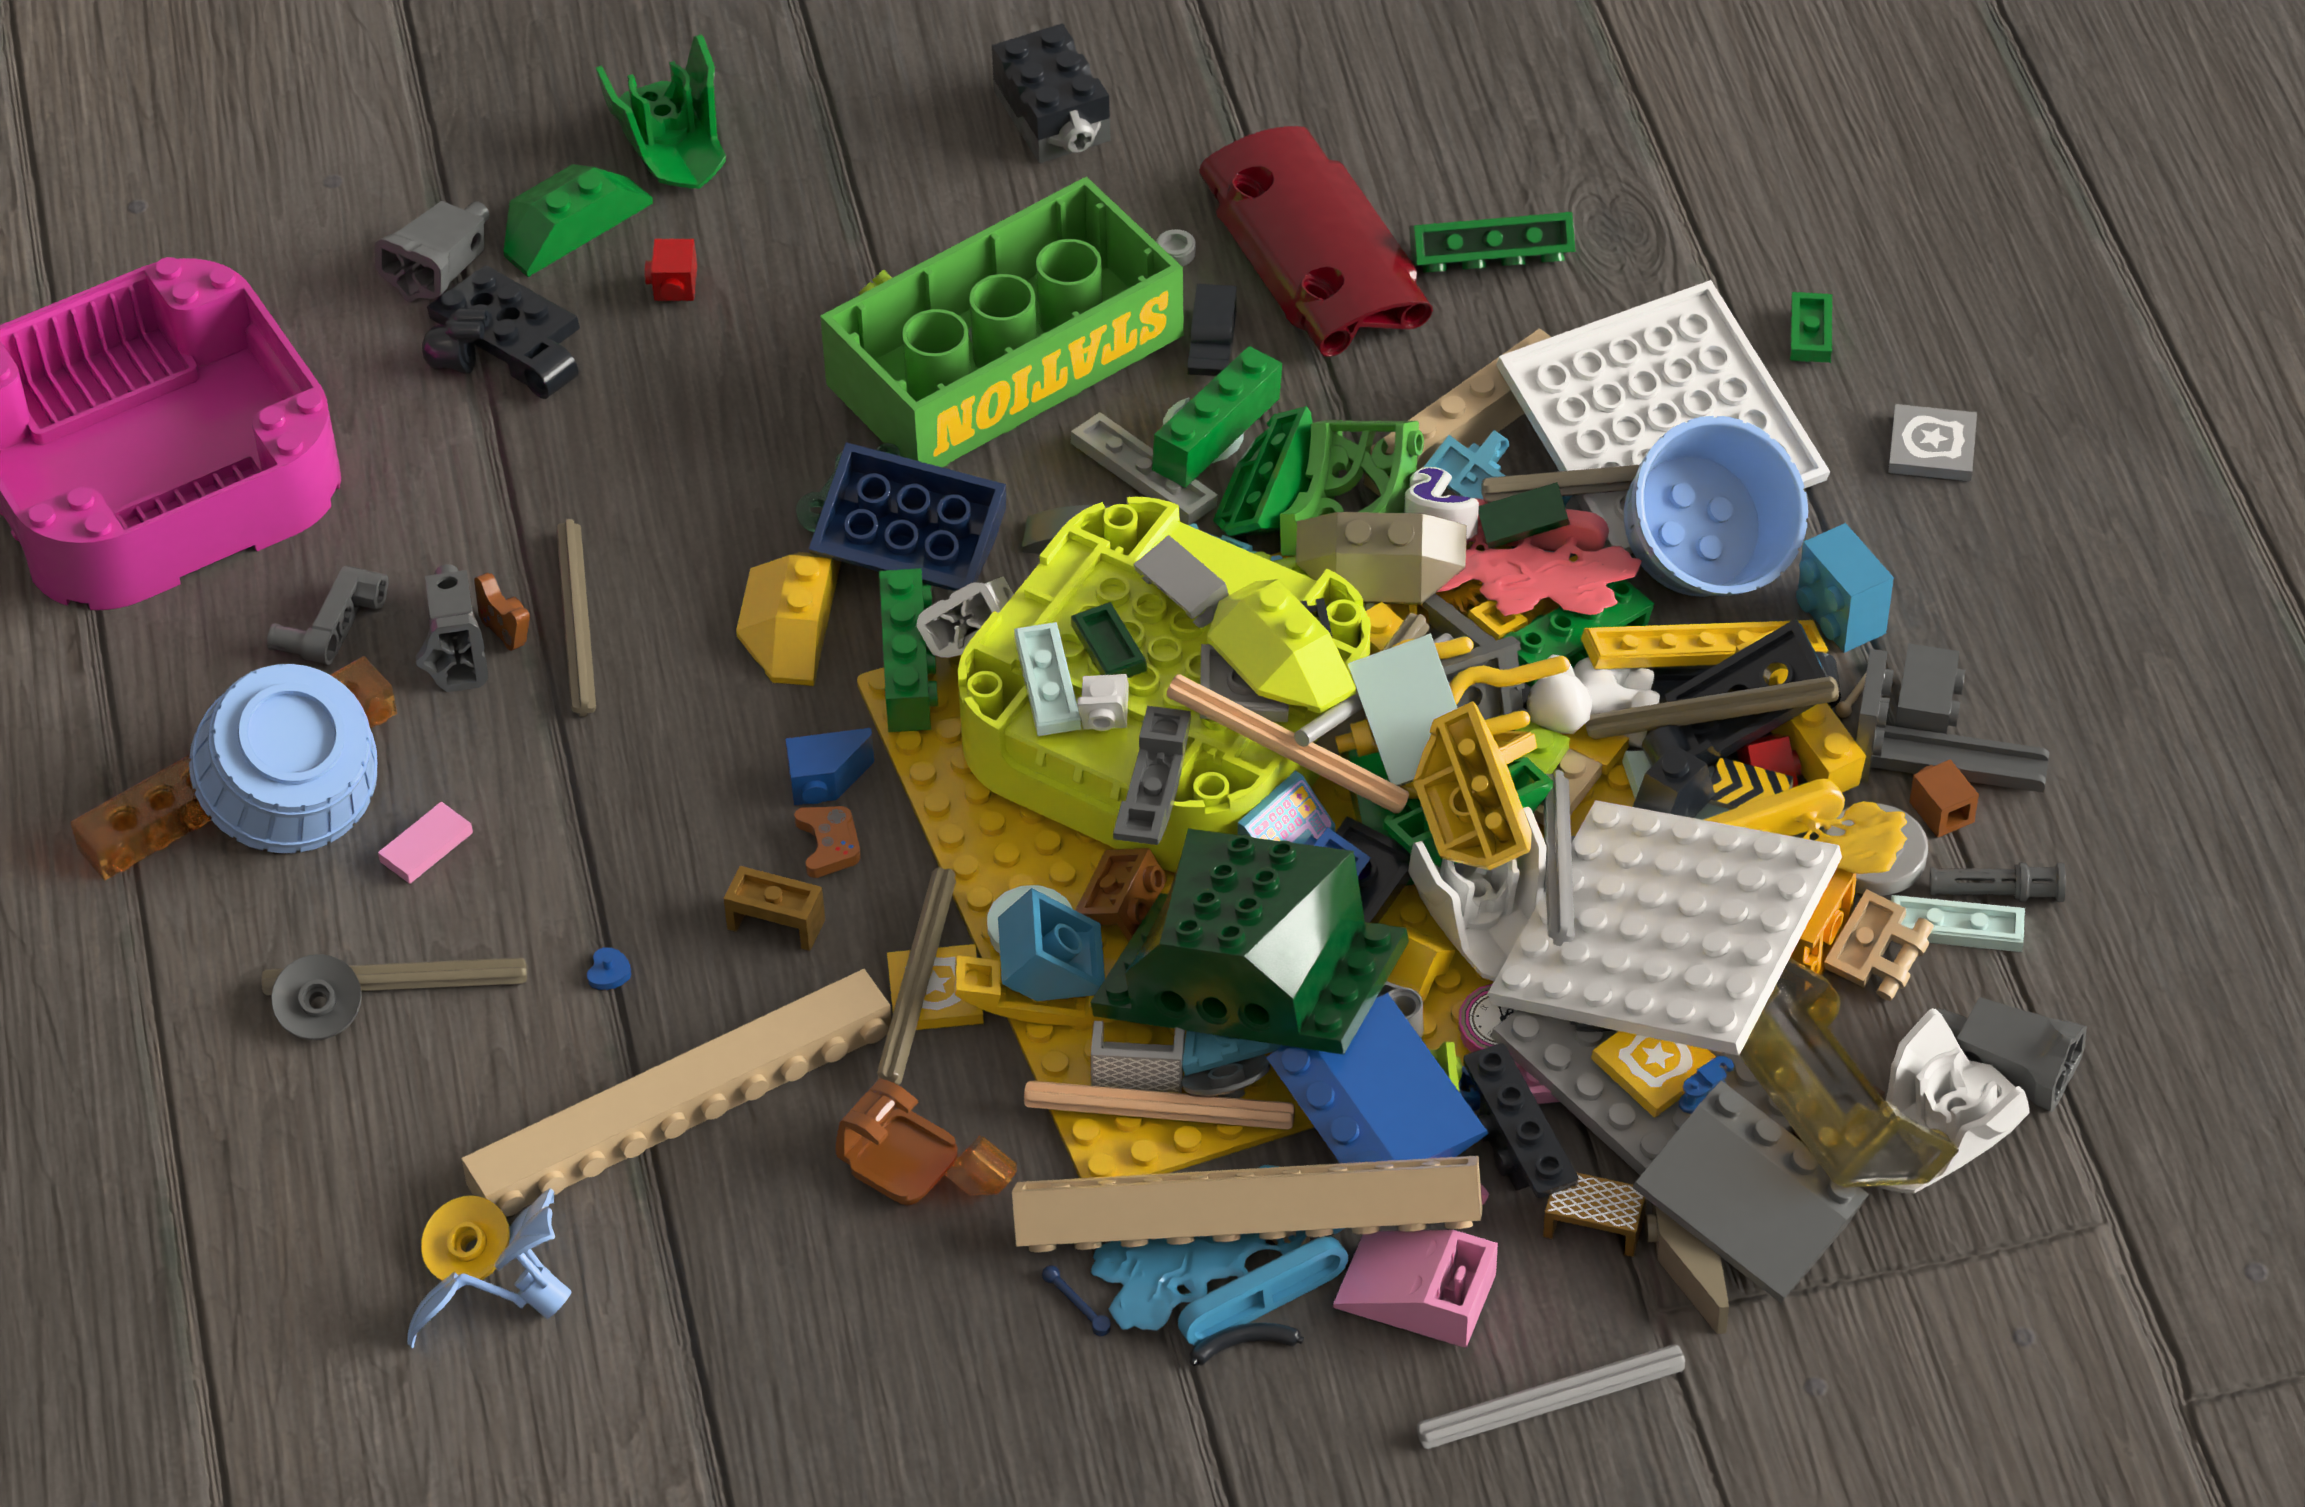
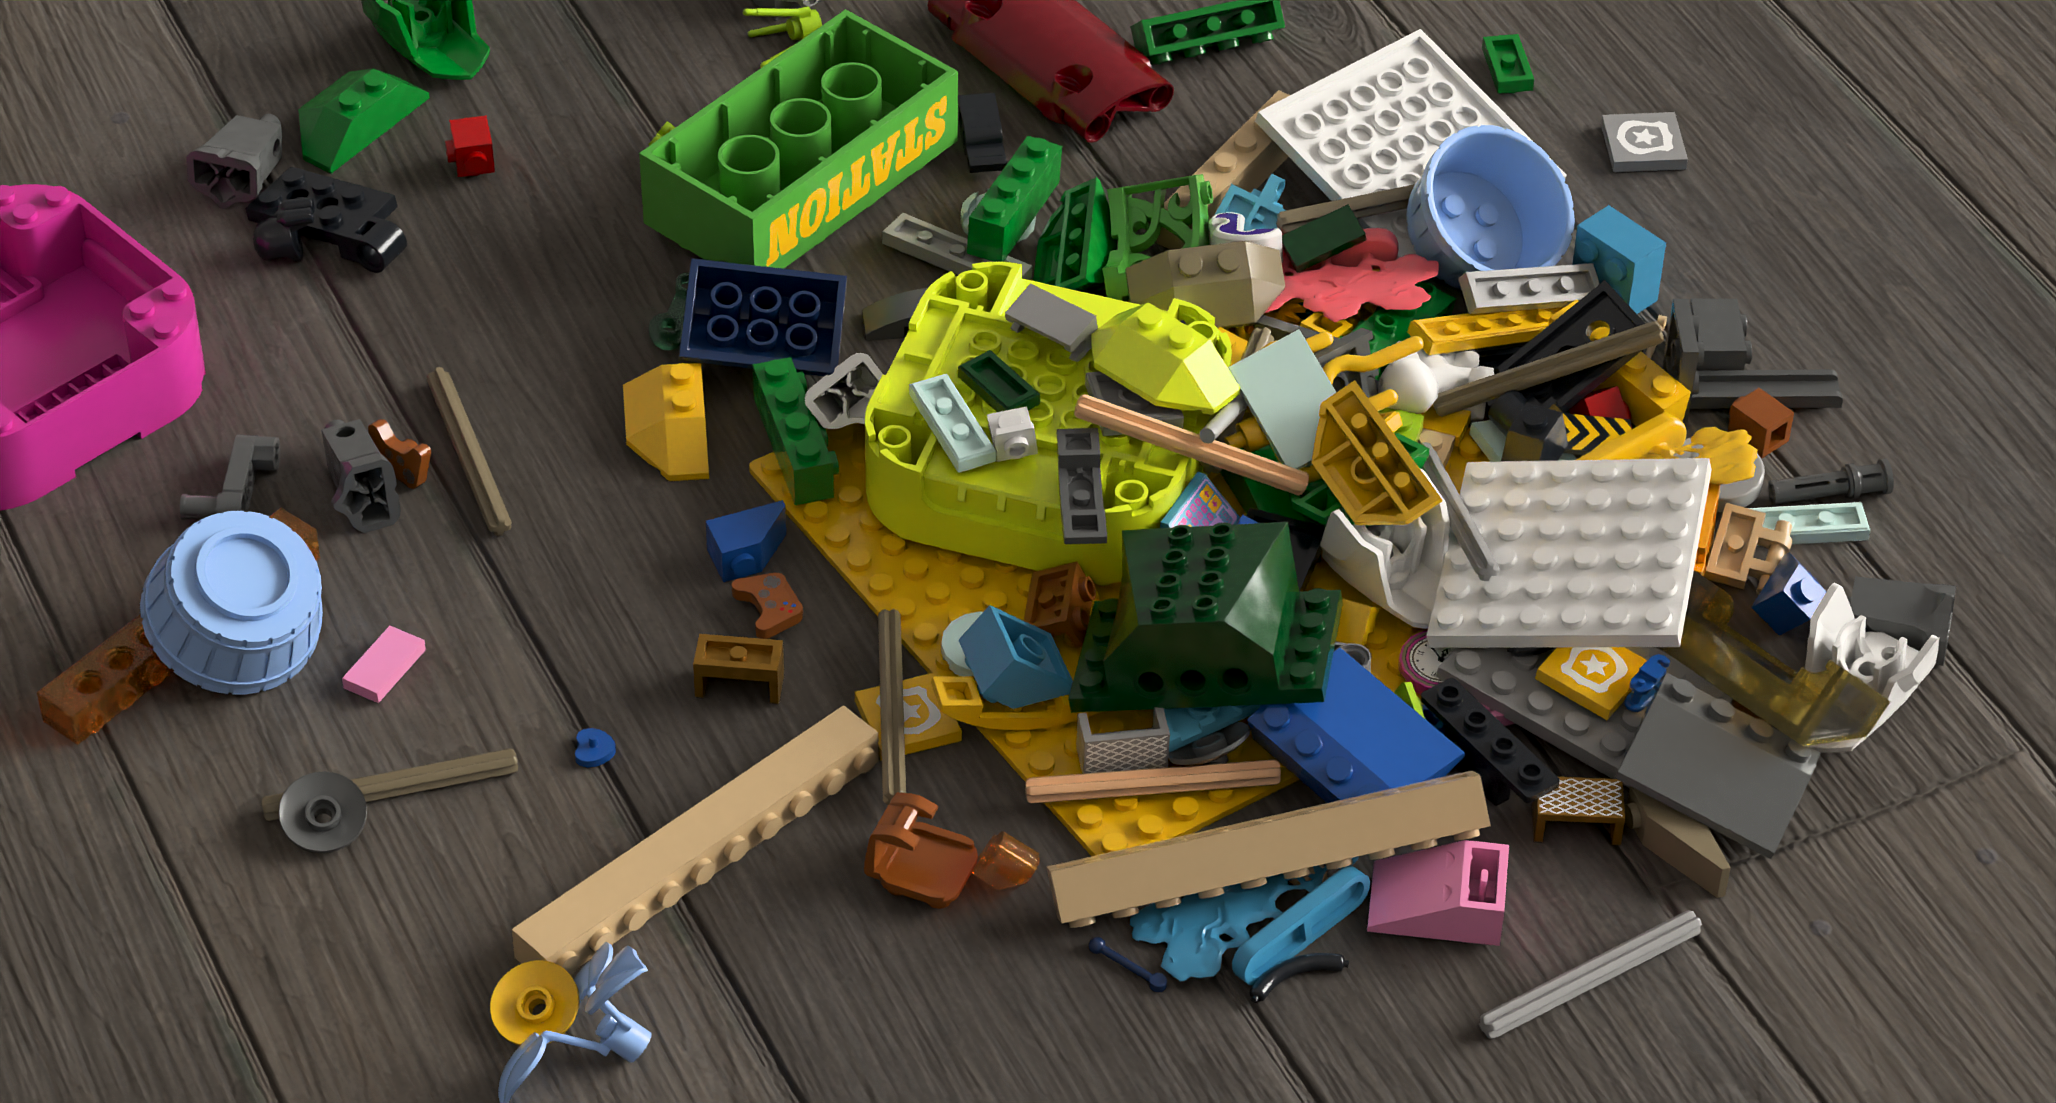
camera: 15 degrees left, 5 degrees down
(1059, 172) = (802, 23): none -> lime plant
(1732, 606) = (1527, 287): none -> light grey plate
(1904, 1002) = (1788, 596): none -> blue slope

